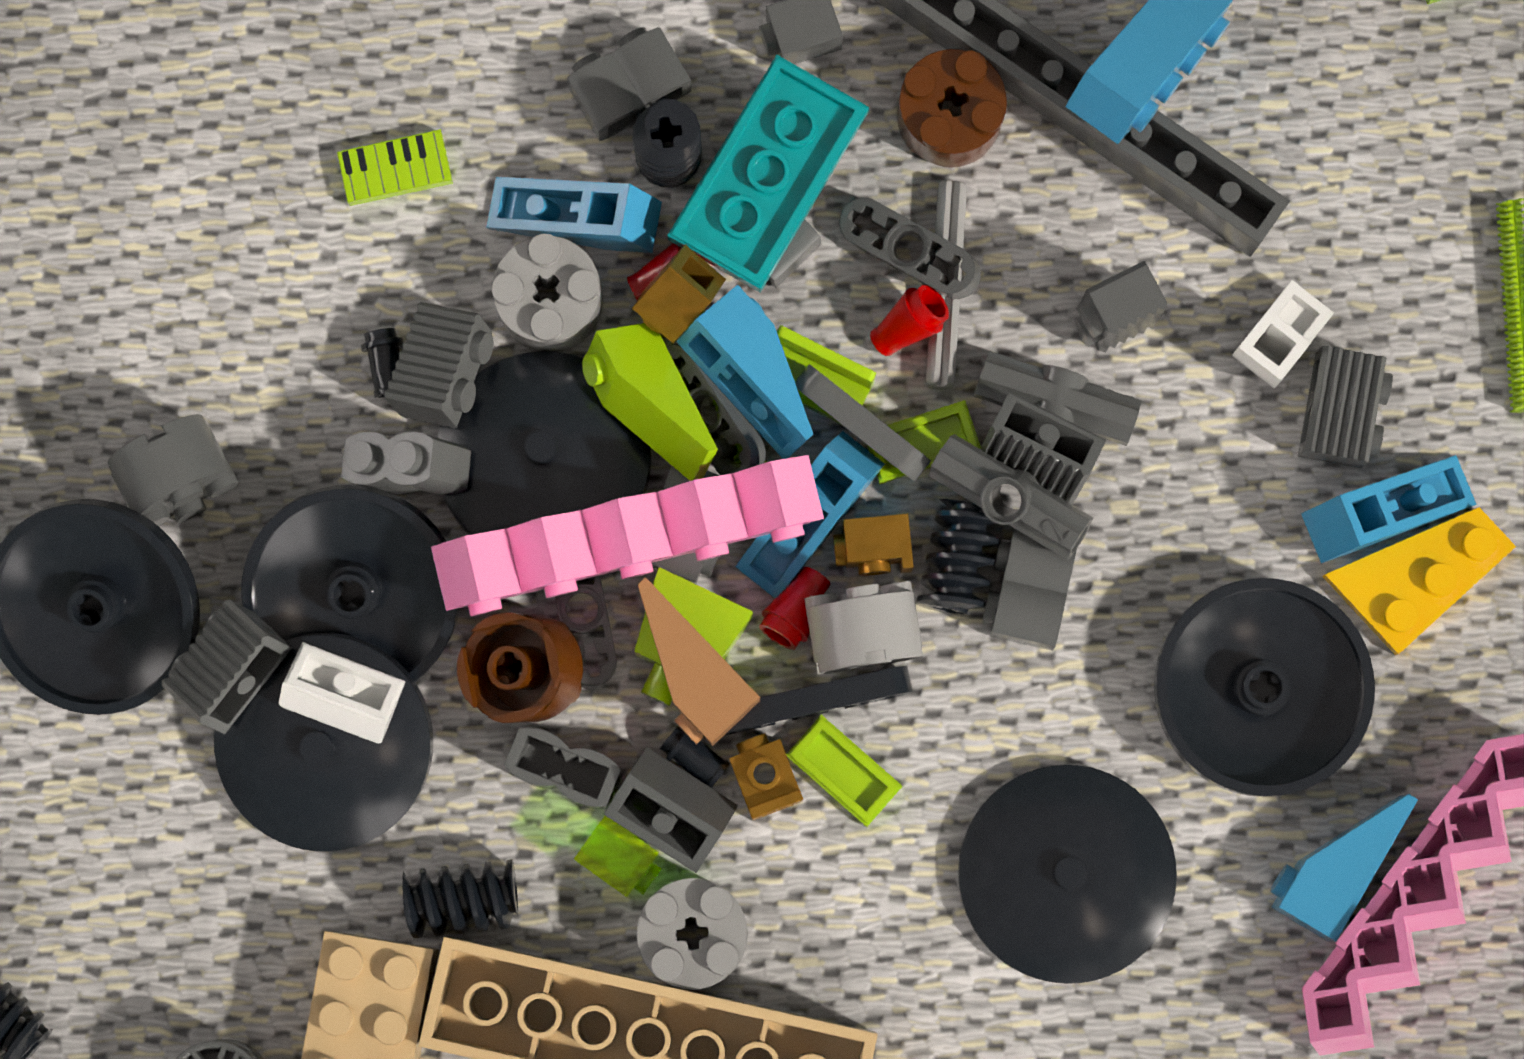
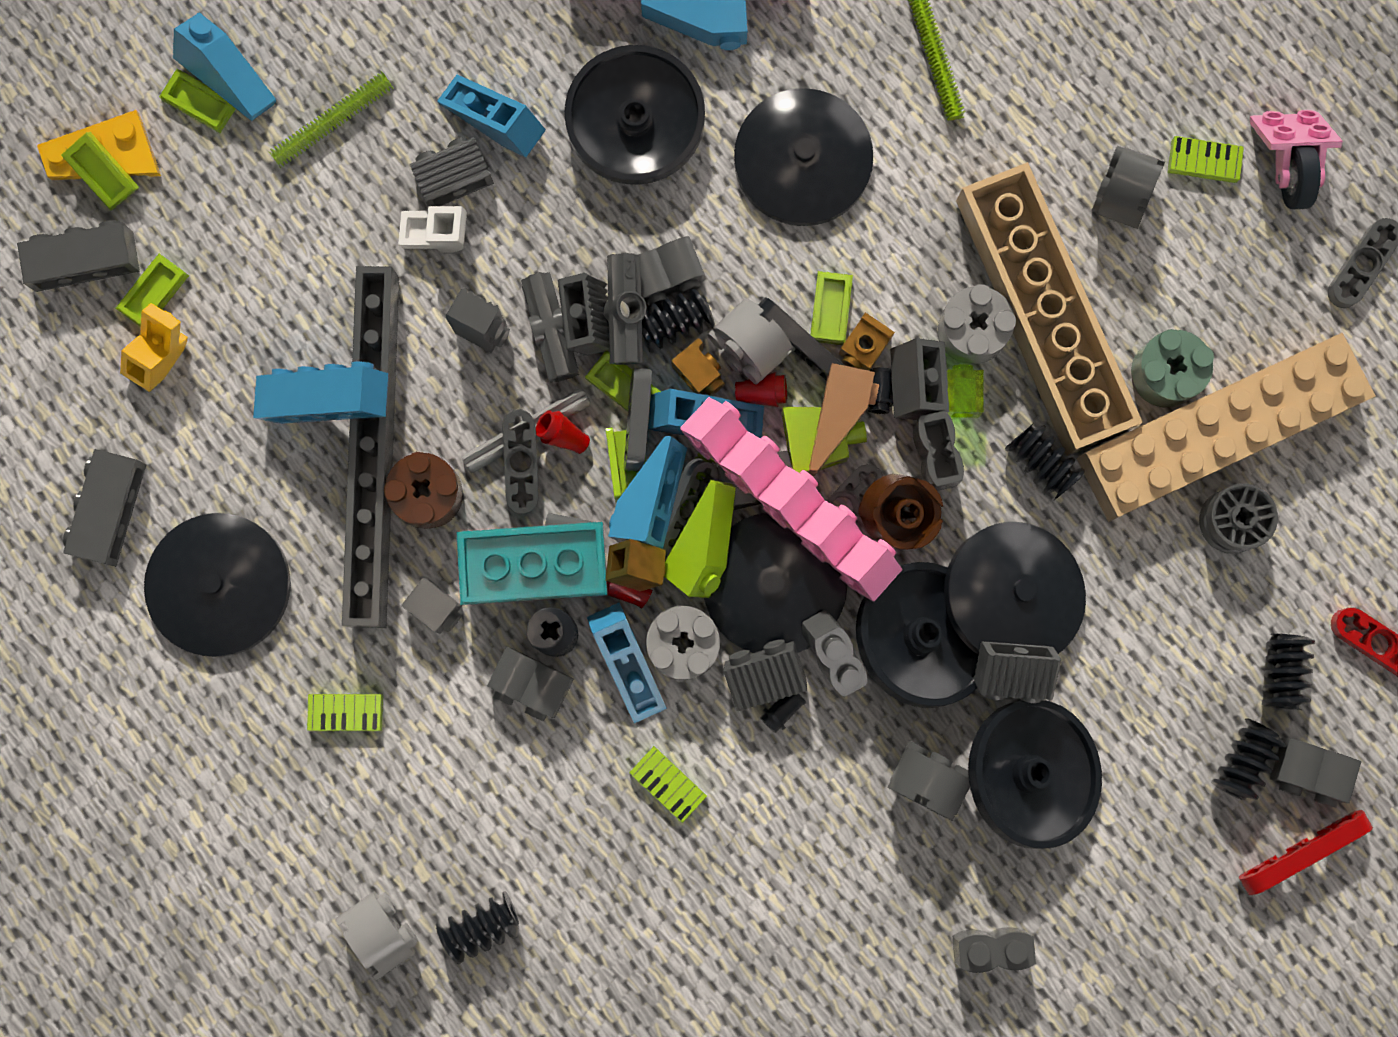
camera: 125 degrees left, 0 degrees up
(340, 693) = (986, 596): white slope -> none
(1420, 577) = (517, 75): yellow wing -> none

